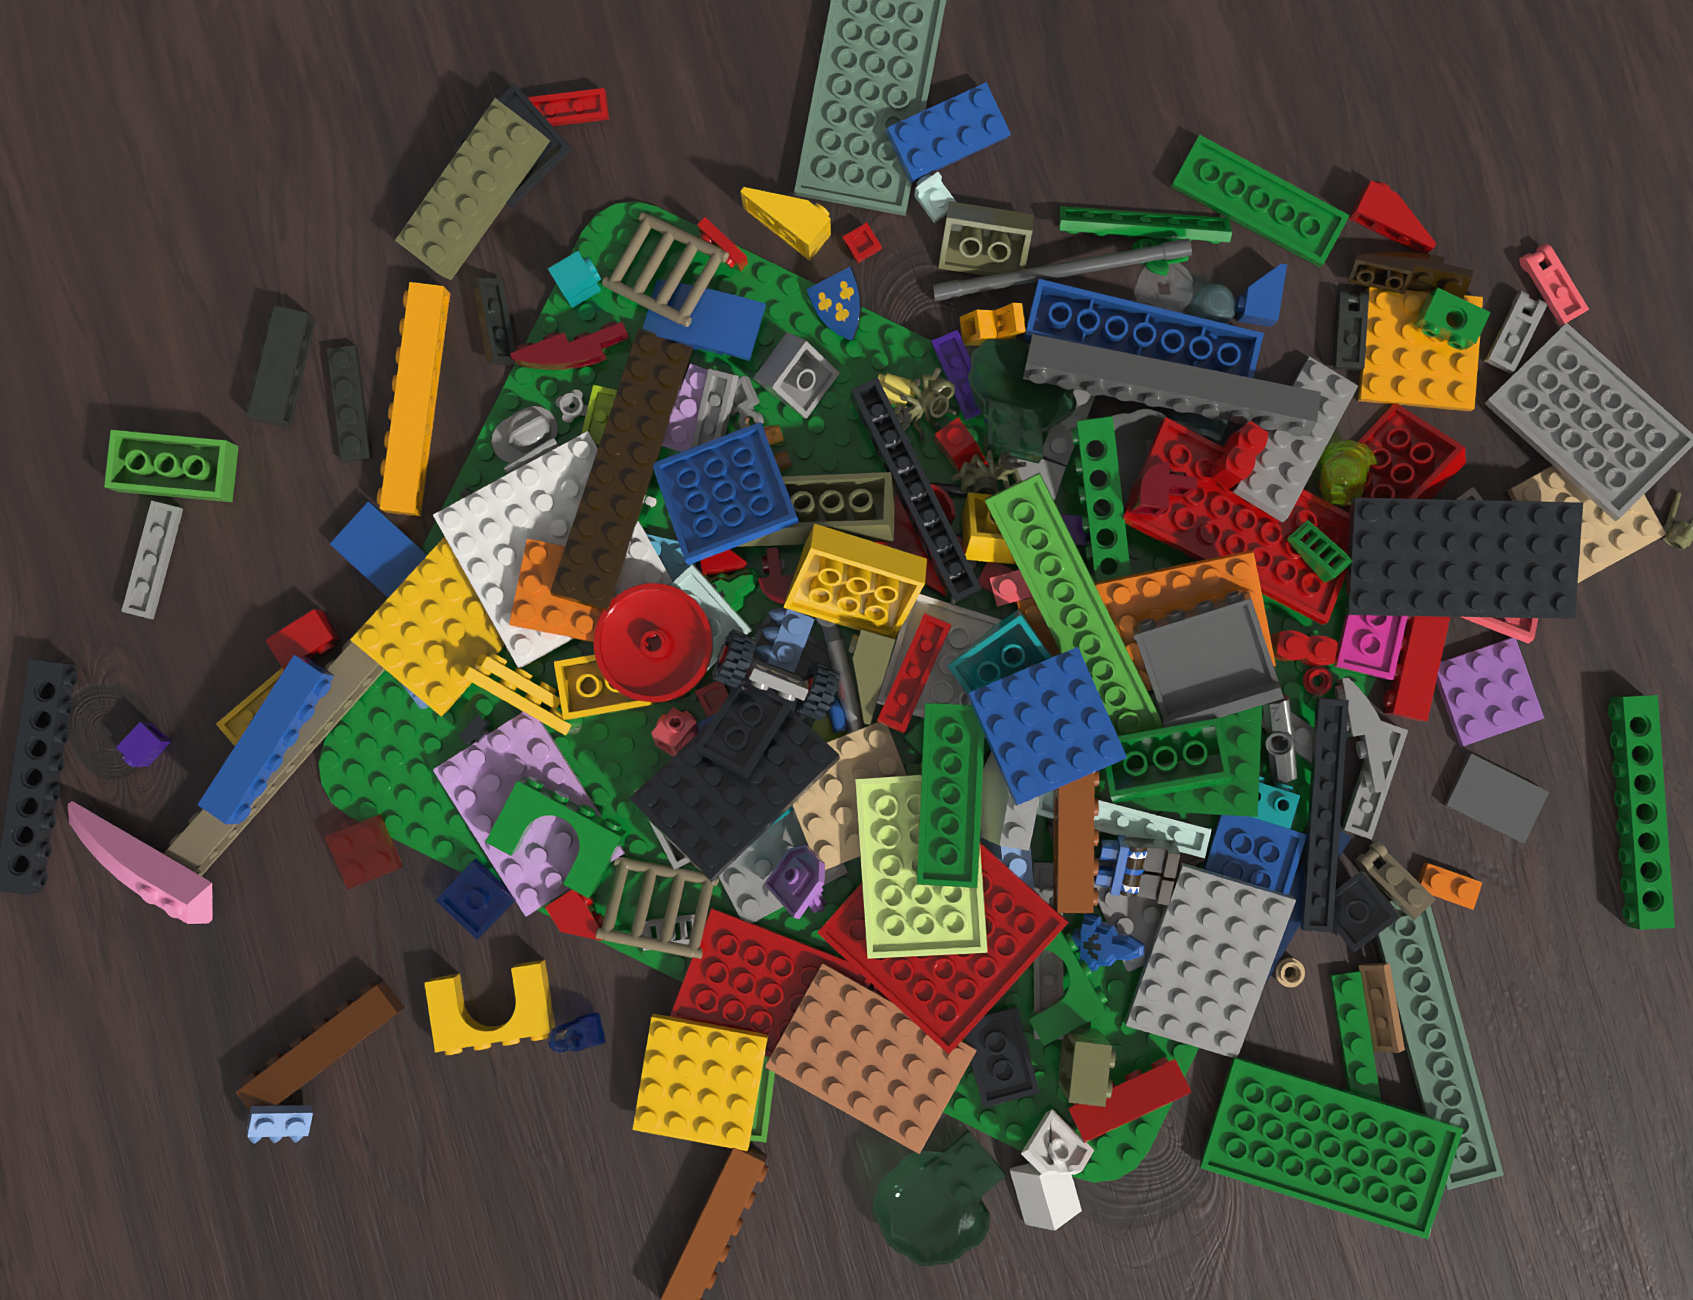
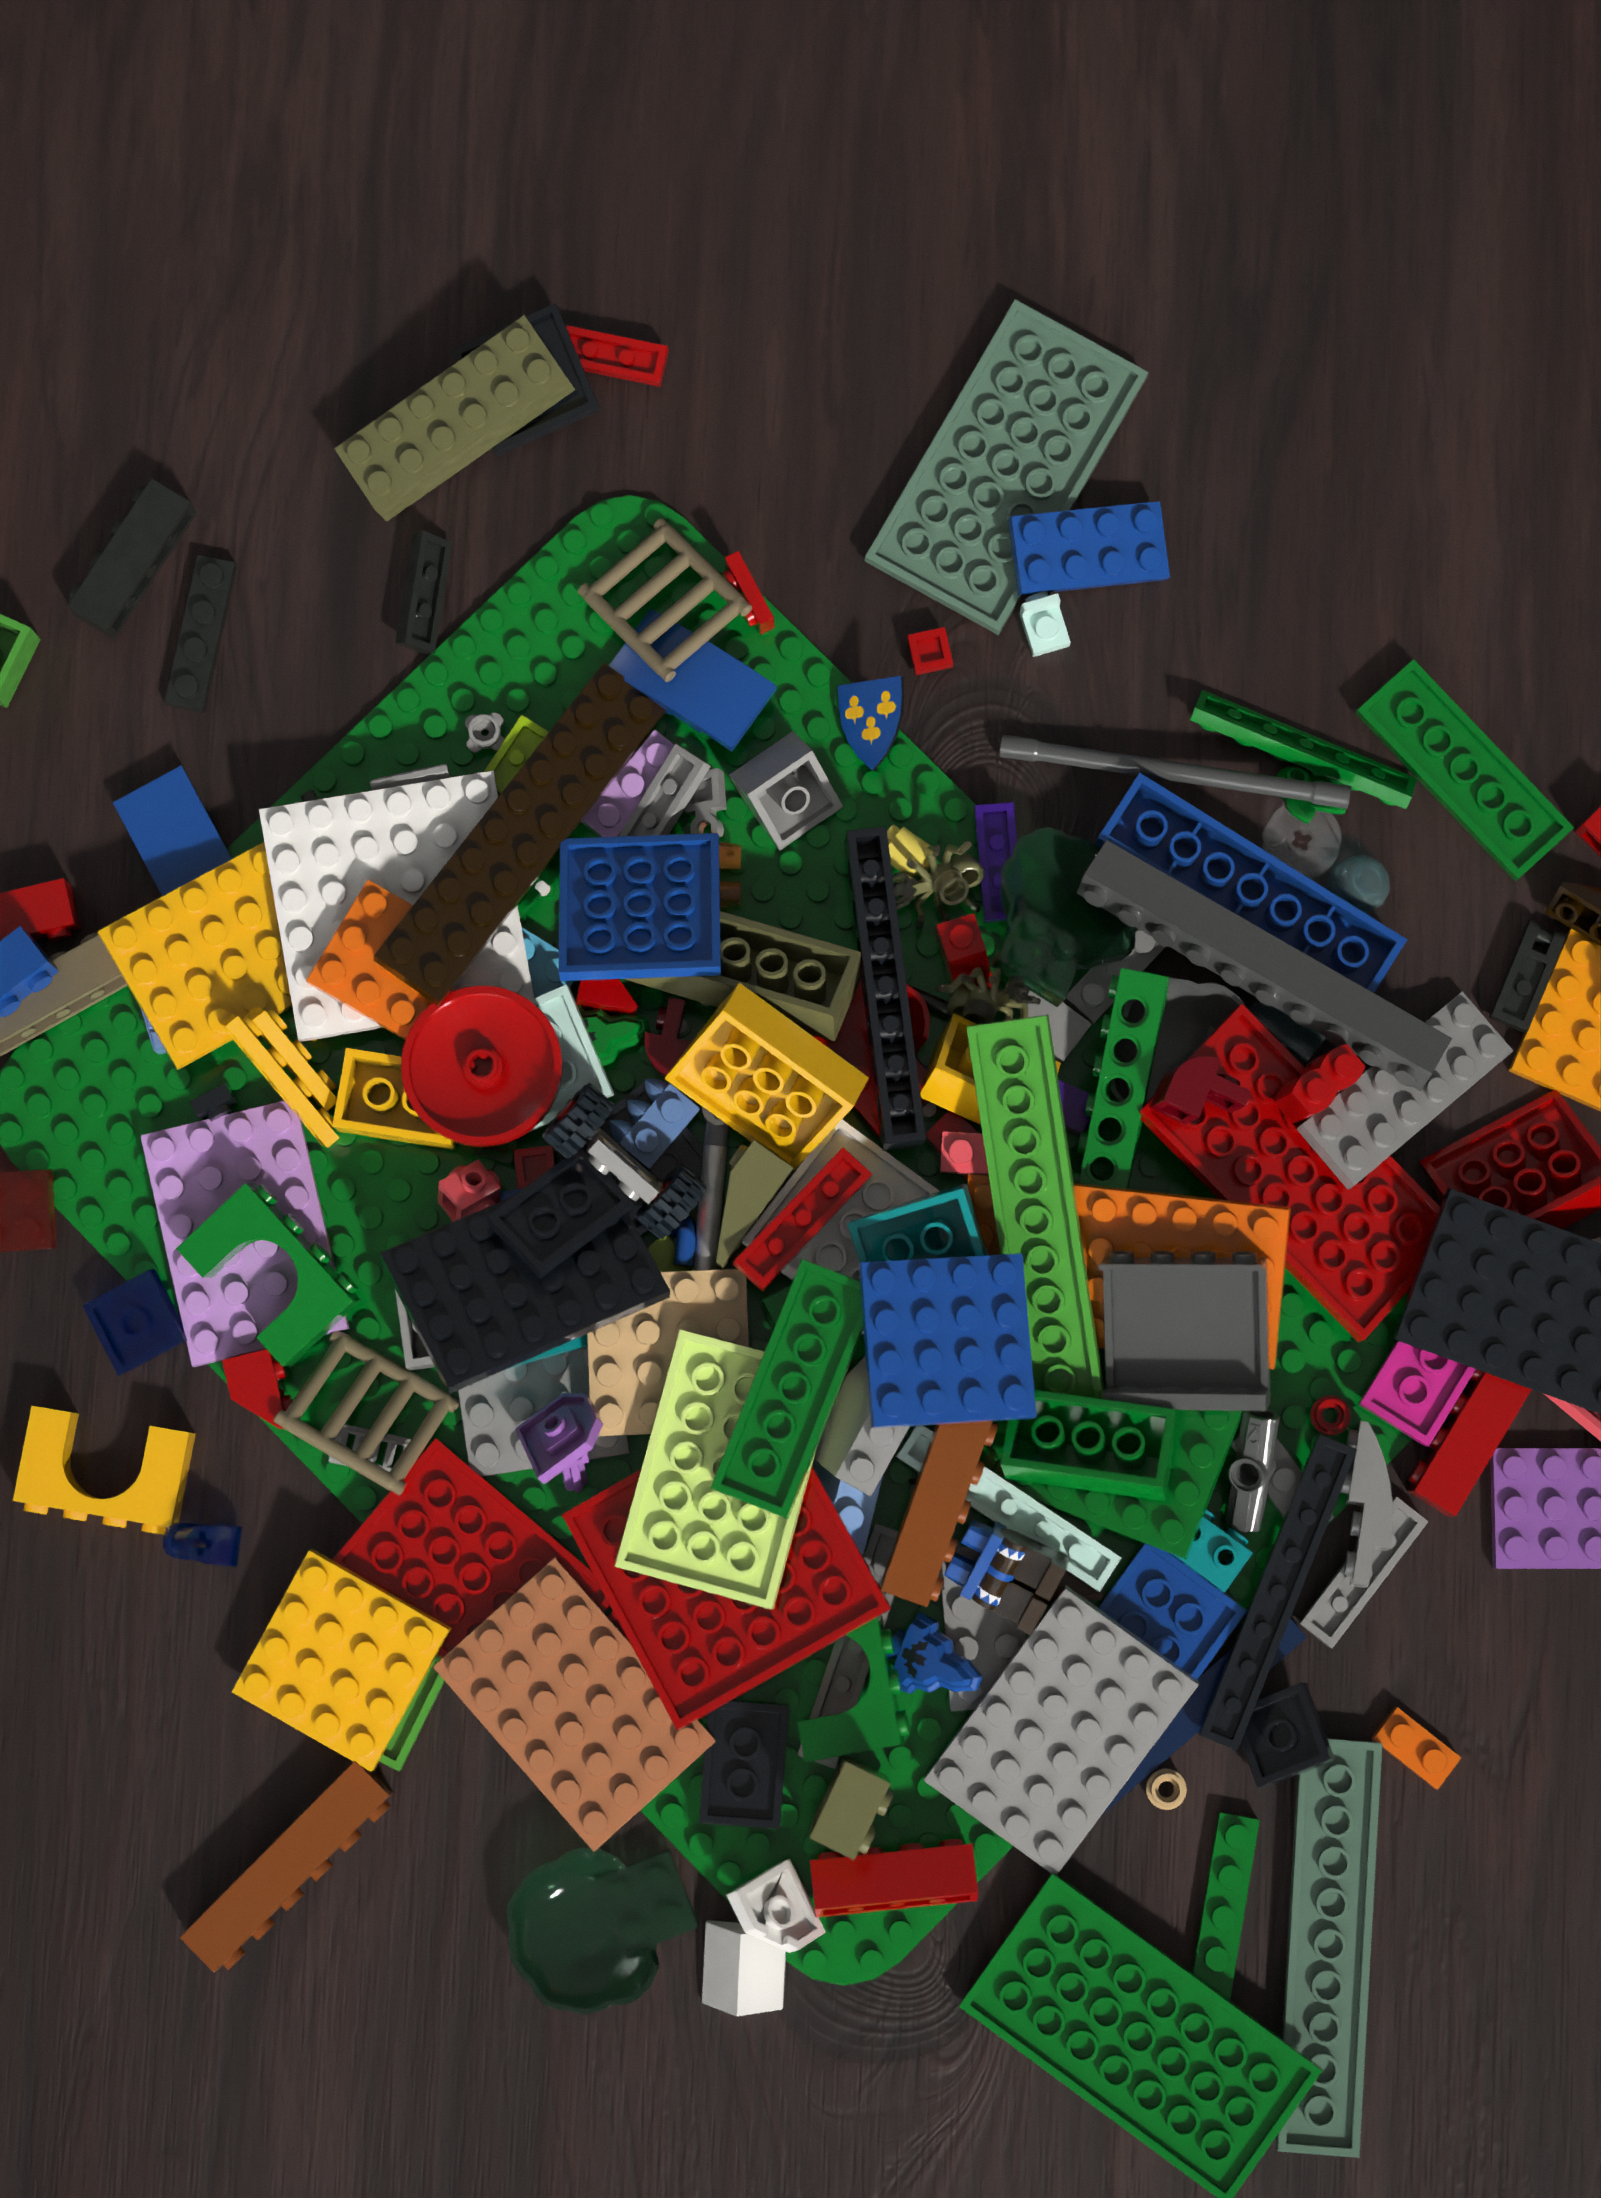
camera: 20 degrees right, 5 degrees down
(414, 399) = (285, 657): light orange brick -> none
(523, 432) = (410, 745): light grey piece -> none
(560, 354) = (492, 660): dark red slope -> none
(576, 278) = (546, 573): teal piece -> none
(790, 218) = (849, 591): yellow slope -> none
(985, 239) = (1089, 699): olive slope -> none
(992, 324) = (1072, 813): light orange brick -> none
(1262, 299) = (1424, 896): blue slope -> none
(1305, 649) = (1331, 1370): red brick -> none
(1332, 551) = (1375, 1259): green slope -> none
(1344, 471) = (1456, 1153): clear neon green helmet -> none
(1381, 1007) = (1271, 1877): medium nougat plate -> none
(1395, 881) = (1345, 1714): dark tan plate -> none
(1496, 798) = (1517, 1653): dark grey tile -> none

